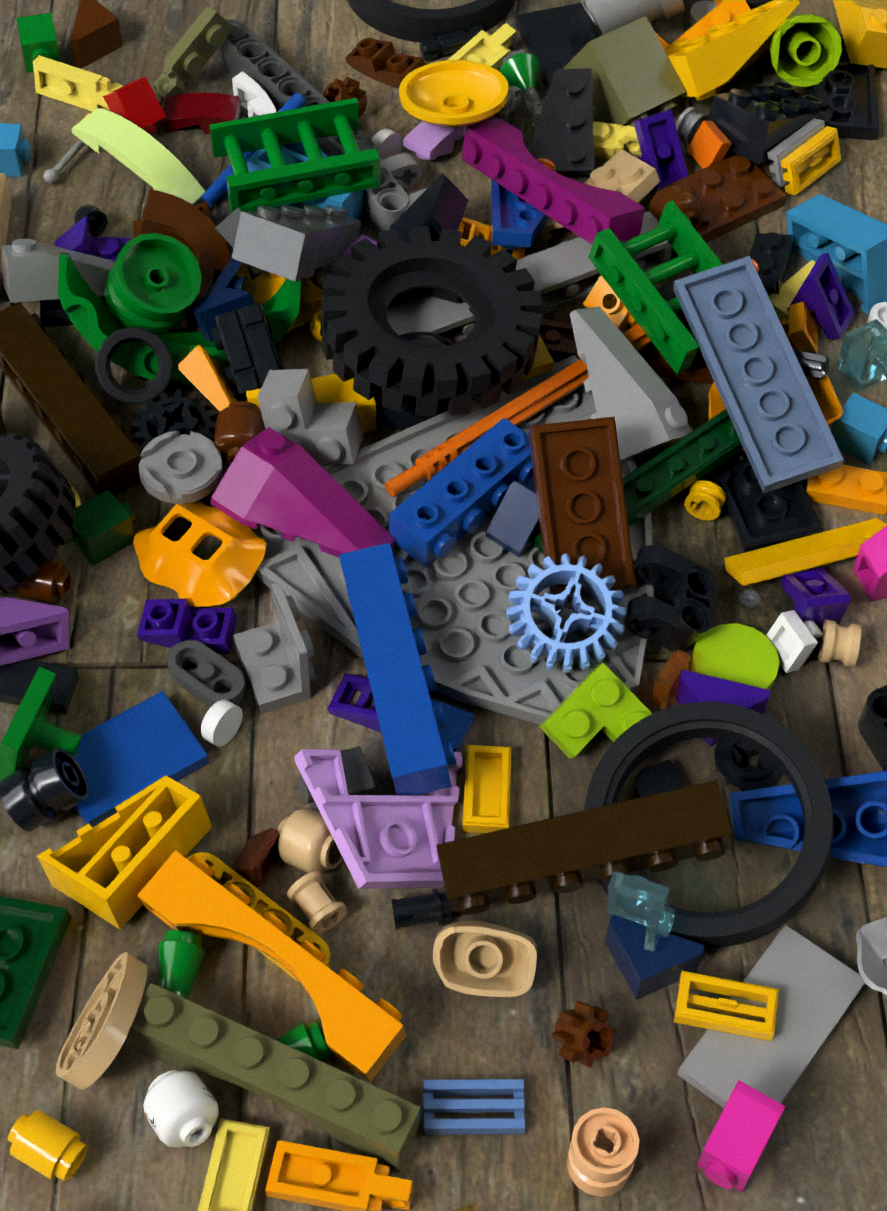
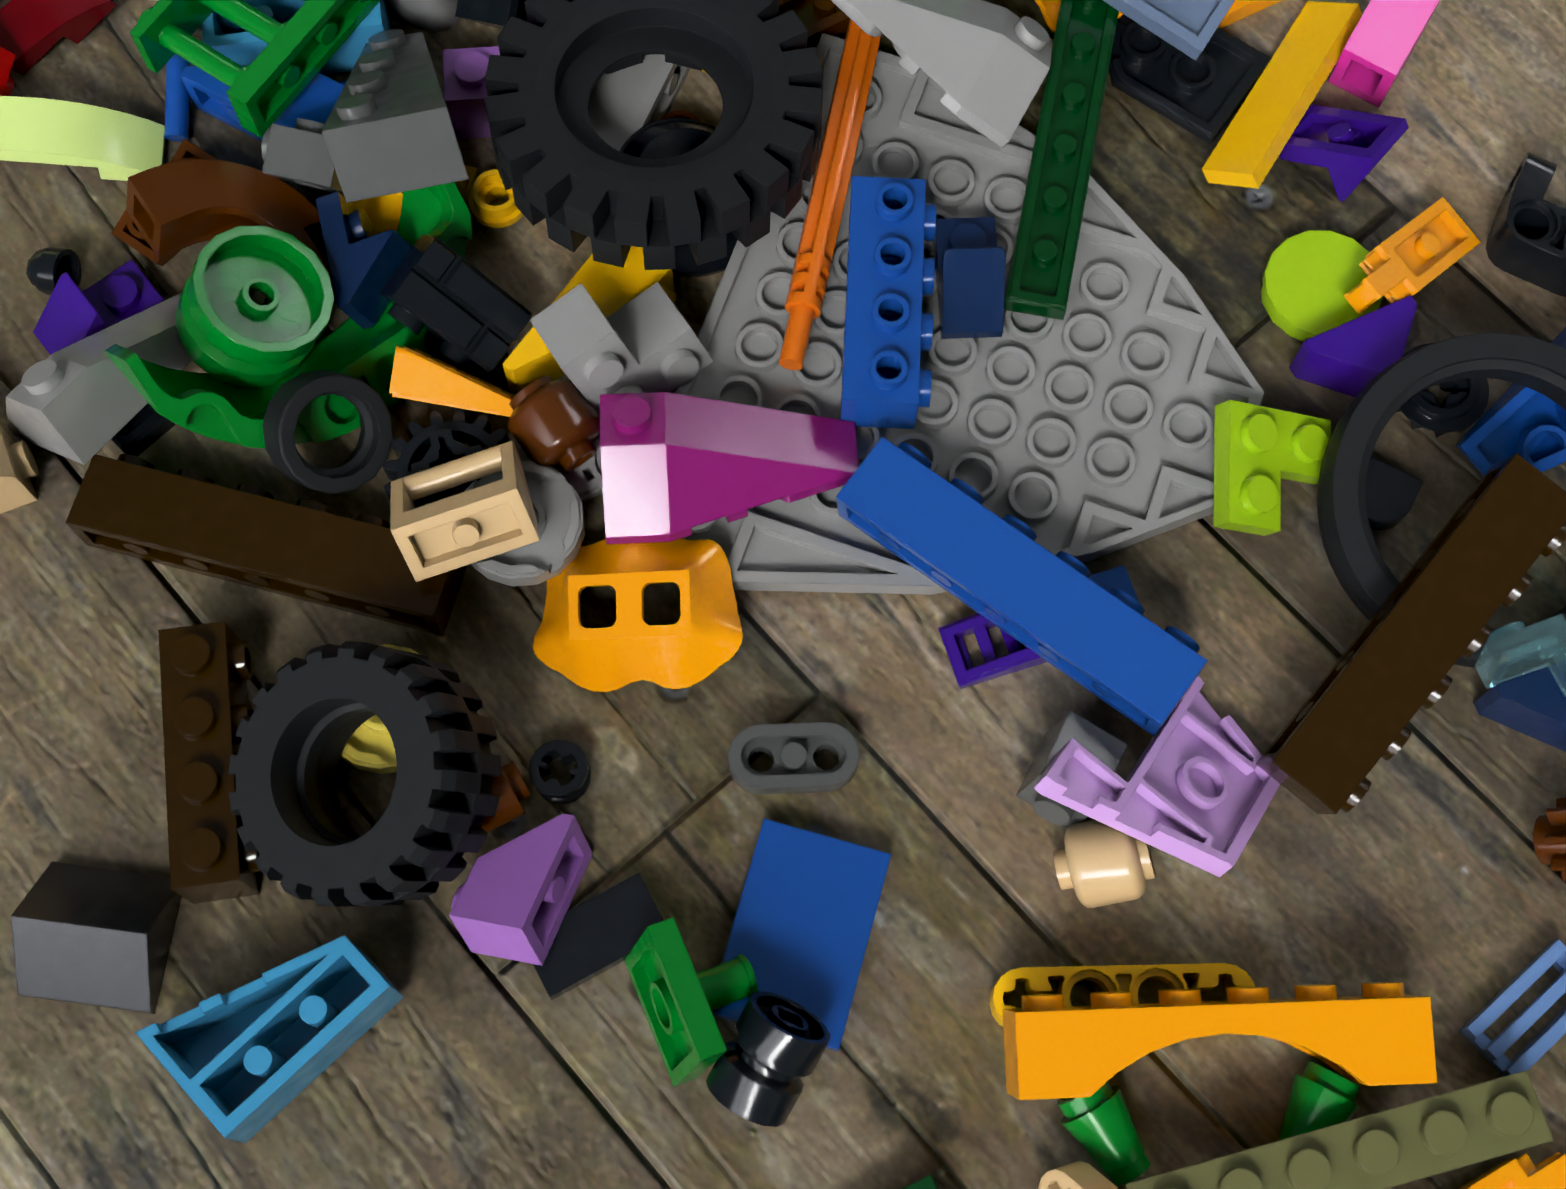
camera: 40 degrees left, 15 degrees up
(93, 610) = (551, 789): none -> black bush
(102, 527) = (496, 665): dark green brick -> none
(121, 854) = (933, 1049): yellow wedge -> none
(153, 435) = (466, 524): none -> tan tile
(174, 621) = (708, 715): dark purple slope -> none
(221, 722) = (869, 802): white tile -> none
(258, 857) = (1058, 928): copper slope -> none
(277, 656) = (855, 668): light grey bracket -> none
(317, 902) = (1177, 926): tan bush -> none
(421, 909) = (1285, 838): black pin -> none
(485, 959) = (1409, 842): tan piece -> none
(486, 789) = (1235, 658): yellow tile -> none
(582, 497) = (1047, 225): reddish brown tile -> none
(582, 617) = (1129, 322): light blue gear -> none
(668, 679) = (1286, 359): clear orange tile -> none
(686, 599) = (1222, 255): black piece -> none
(705, 500) = (1125, 113): yellow bush -> none
(793, 639) = (1365, 212): white tile -> none
(799, 678) = (1413, 256): none -> light orange hinge
(840, 643) = (1410, 181): tan wheel -> none

